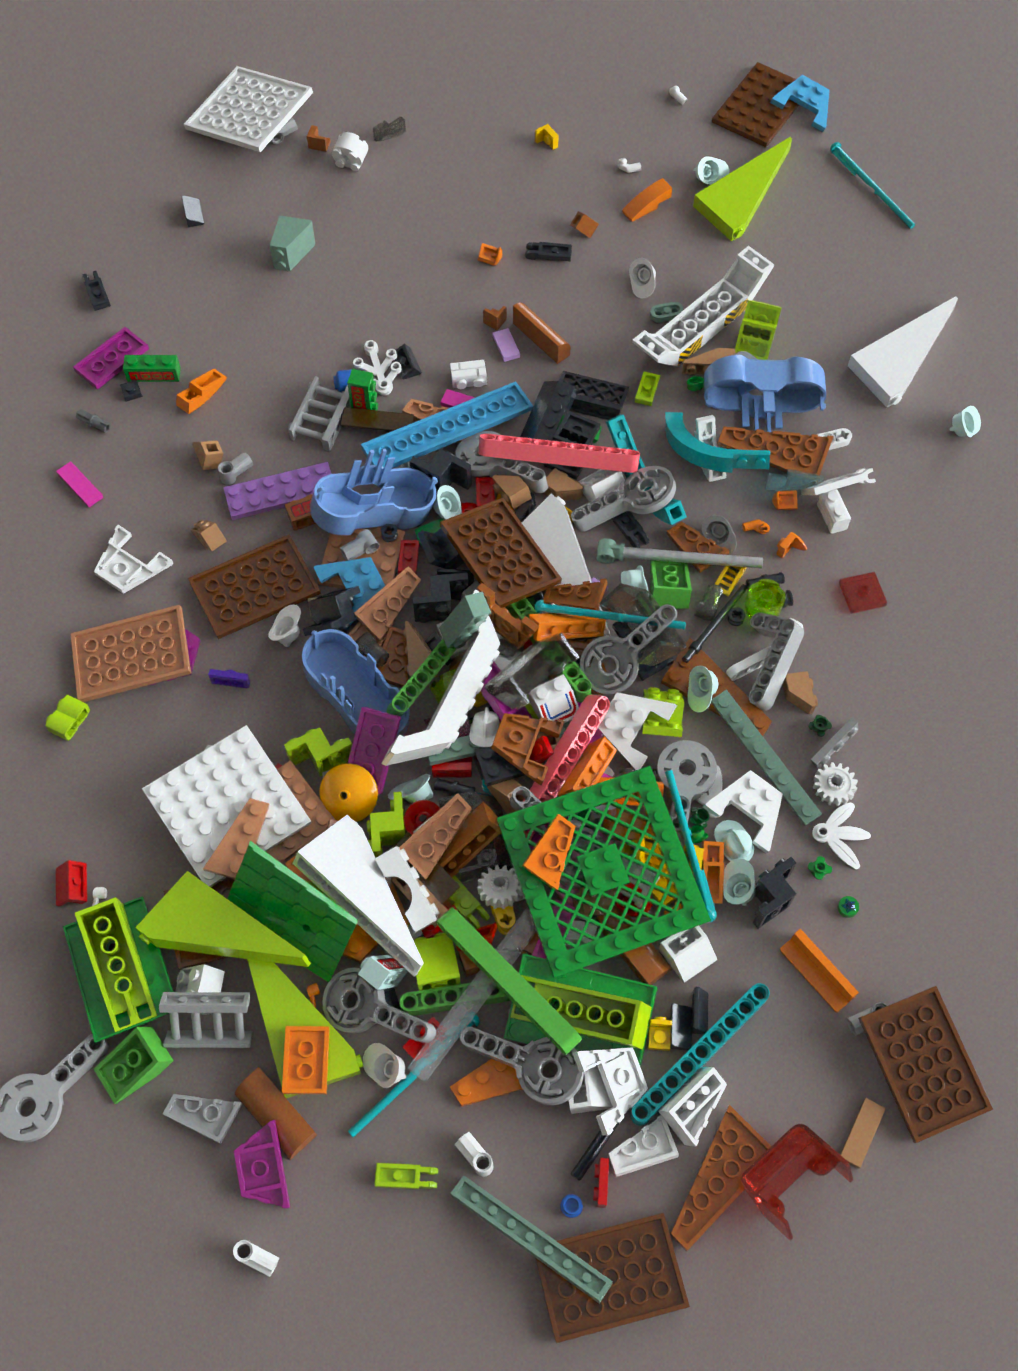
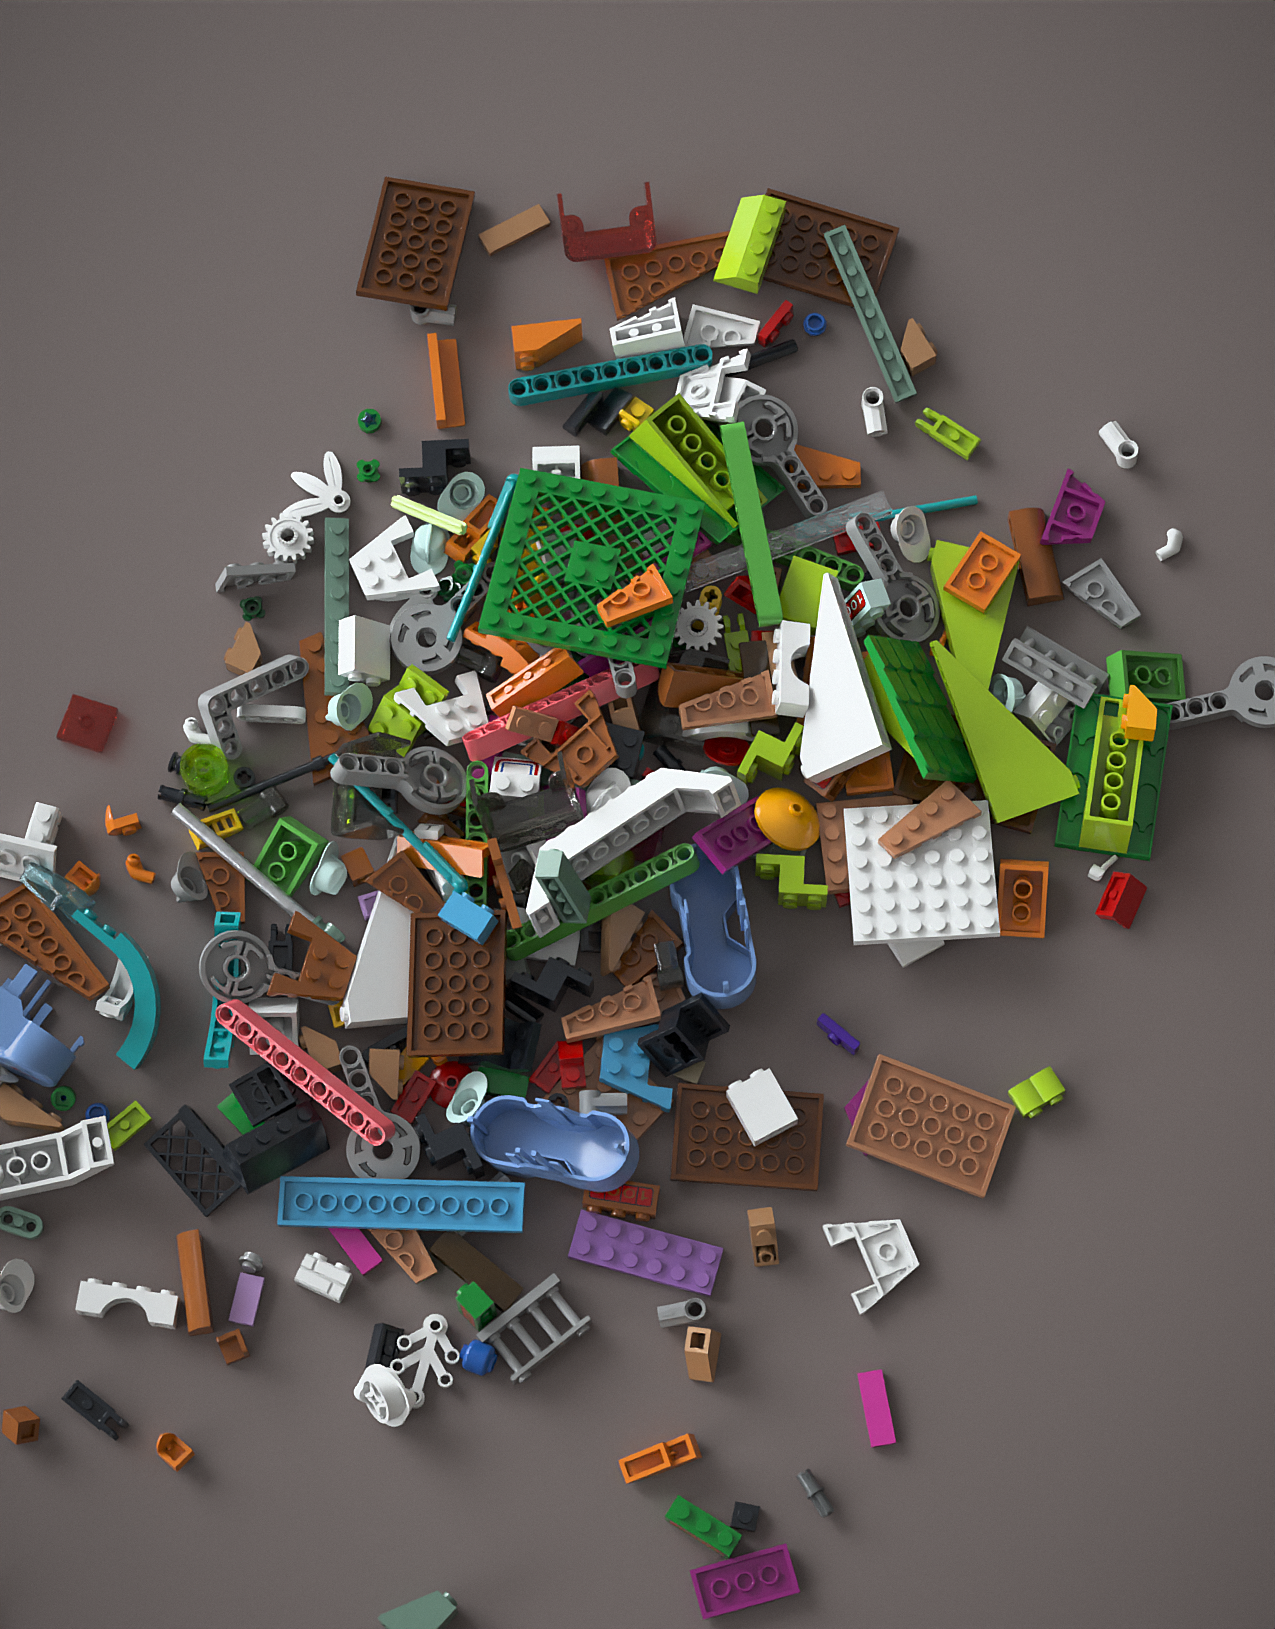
camera: 145 degrees left, 10 degrees up
(112, 1008) = (1139, 717): none -> light orange slope
(146, 842) = (1022, 897): none -> orange slope
(165, 1194) = (1173, 545): none -> white arm
(235, 979) = (1007, 691): none -> light aqua piece
(252, 599) = (761, 1106): none -> white brick
(286, 626) = (742, 1058): white piece -> none
(386, 330) = (385, 1395): none -> white piece
(395, 558) = (572, 1065): none -> red slope
(473, 1232) = (916, 350): none -> medium nougat slope
(517, 360) = (251, 1262): none -> light grey plate
(519, 584) = (468, 917): none -> dark azure brick
(555, 312) = (96, 1299): none -> white arch
(567, 735) = (531, 723): none -> nougat plate
(587, 631) = (429, 831): none -> white tile
(592, 520) = (324, 969): none -> dark orange wing
(668, 386) = (97, 1110): none -> blue plate
(668, 1238) = (750, 242): none -> lime slope
(722, 732) = (364, 650): none -> white brick
(749, 853) = (429, 515): none -> yellowish green axle
(774, 1034) = (543, 341): none -> orange slope

